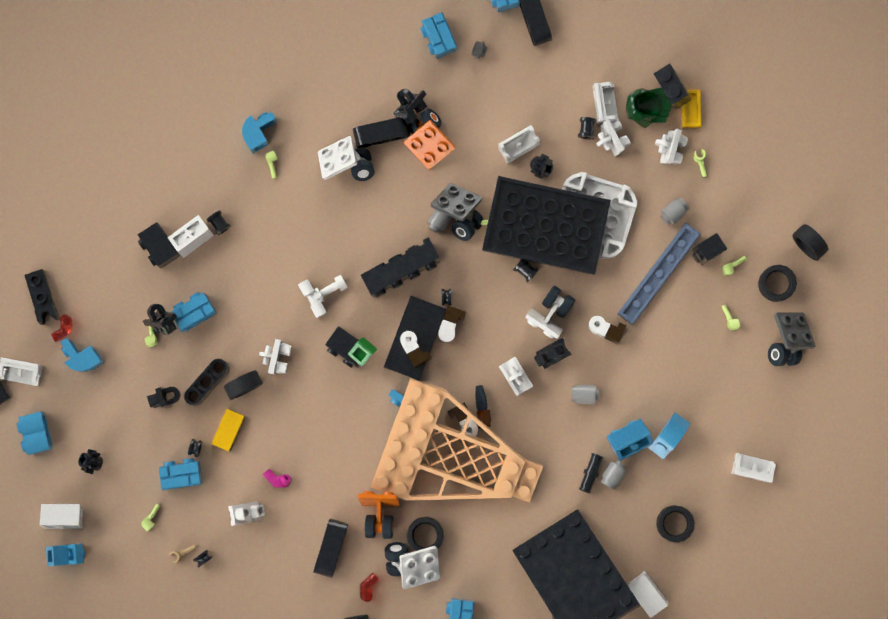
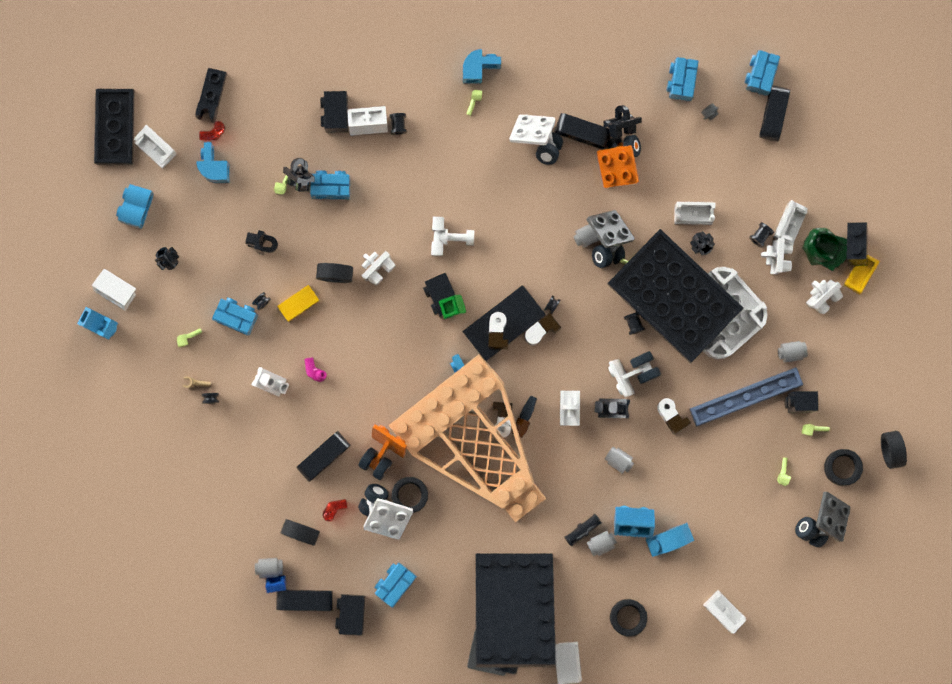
camera: 25 degrees right, 0 degrees up
(197, 385) = (314, 254): black beam -> none
(401, 268) = (528, 256): black wedge -> none
(700, 161) = (841, 324): yellowish green hand -> none

